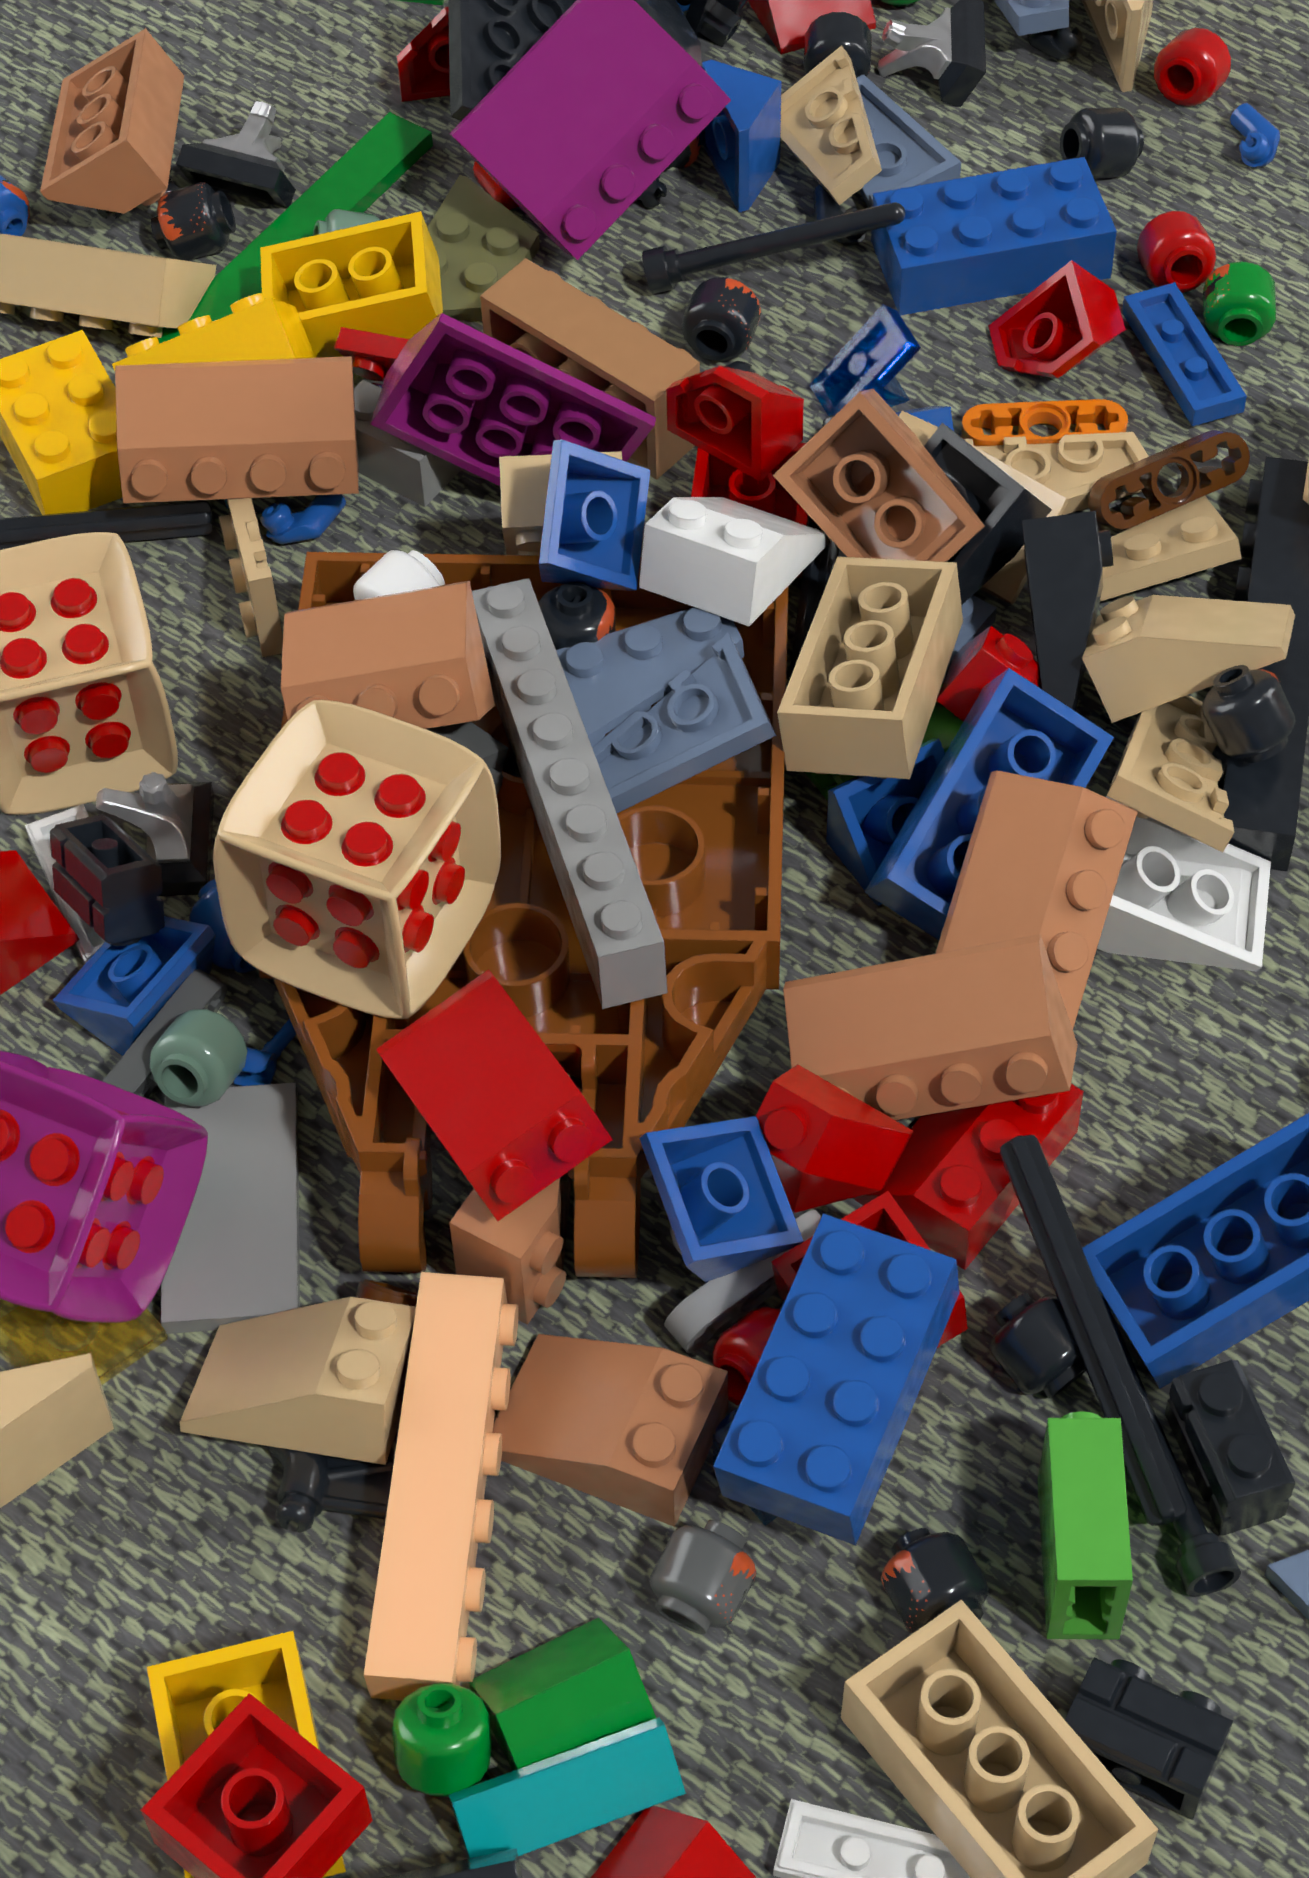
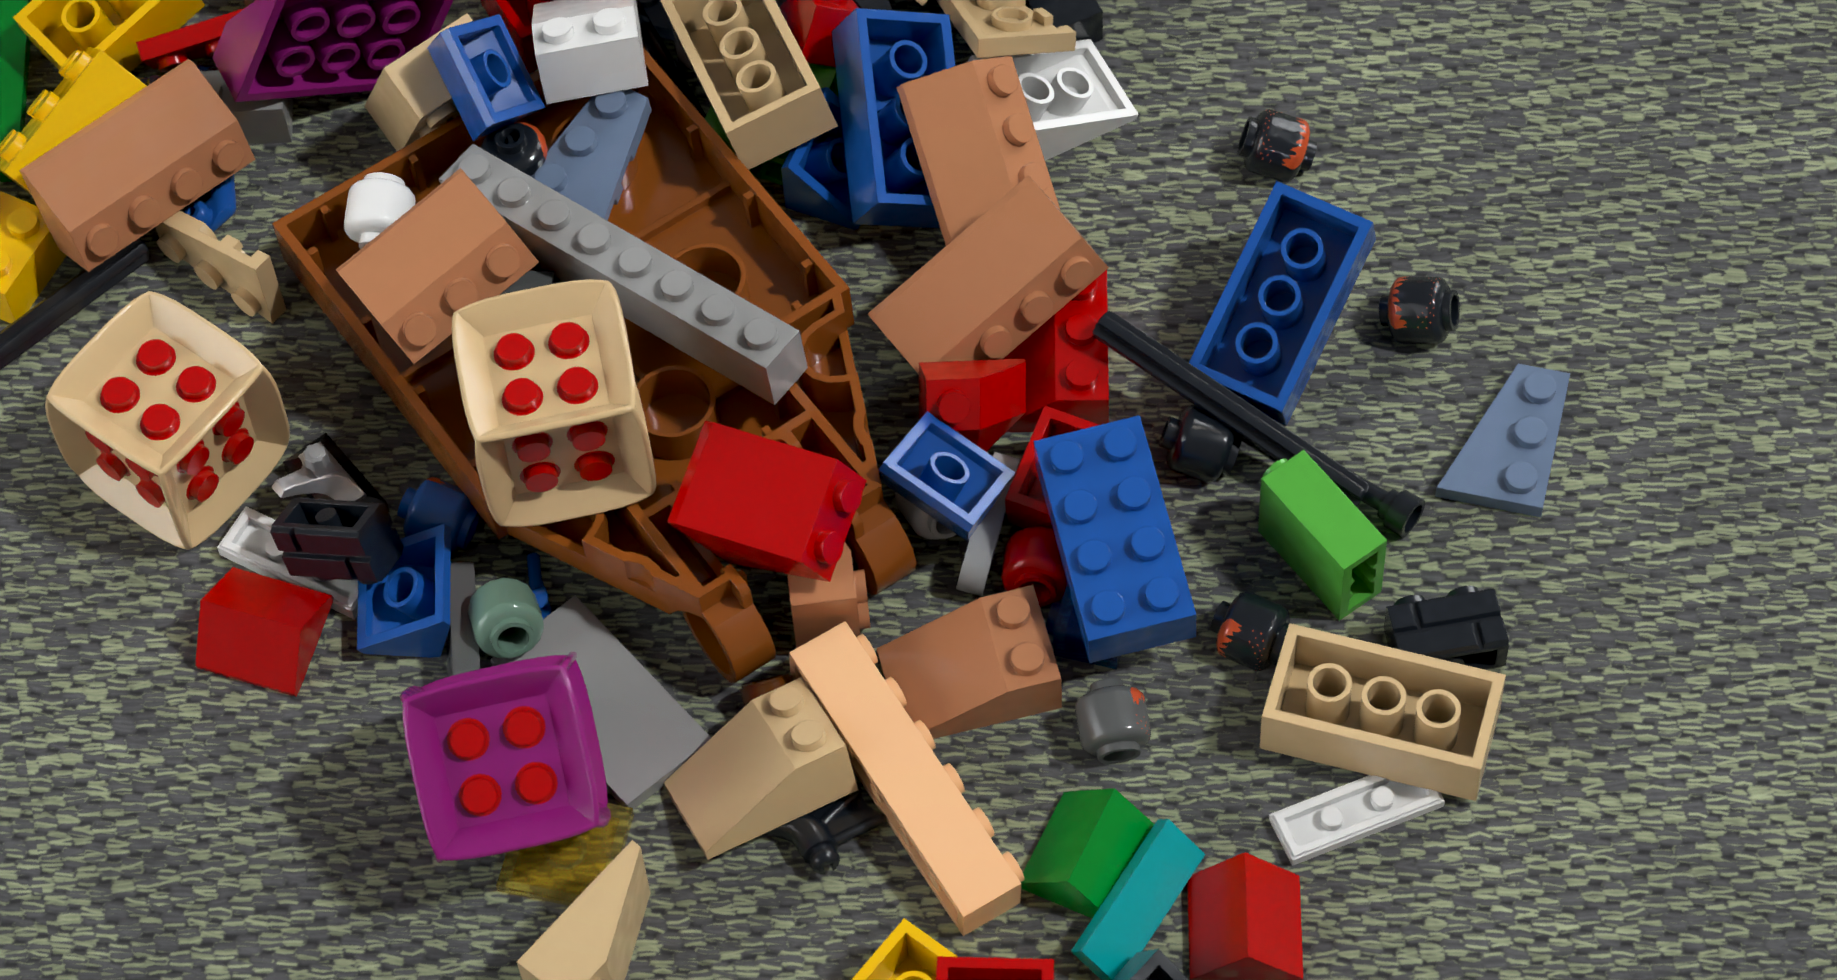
camera: 35 degrees left, 5 degrees up
(441, 1739) = (1040, 920): green head -> none
(687, 731) = (665, 176): sand blue wing -> none
(1229, 1447) = (1362, 431): black brick -> none

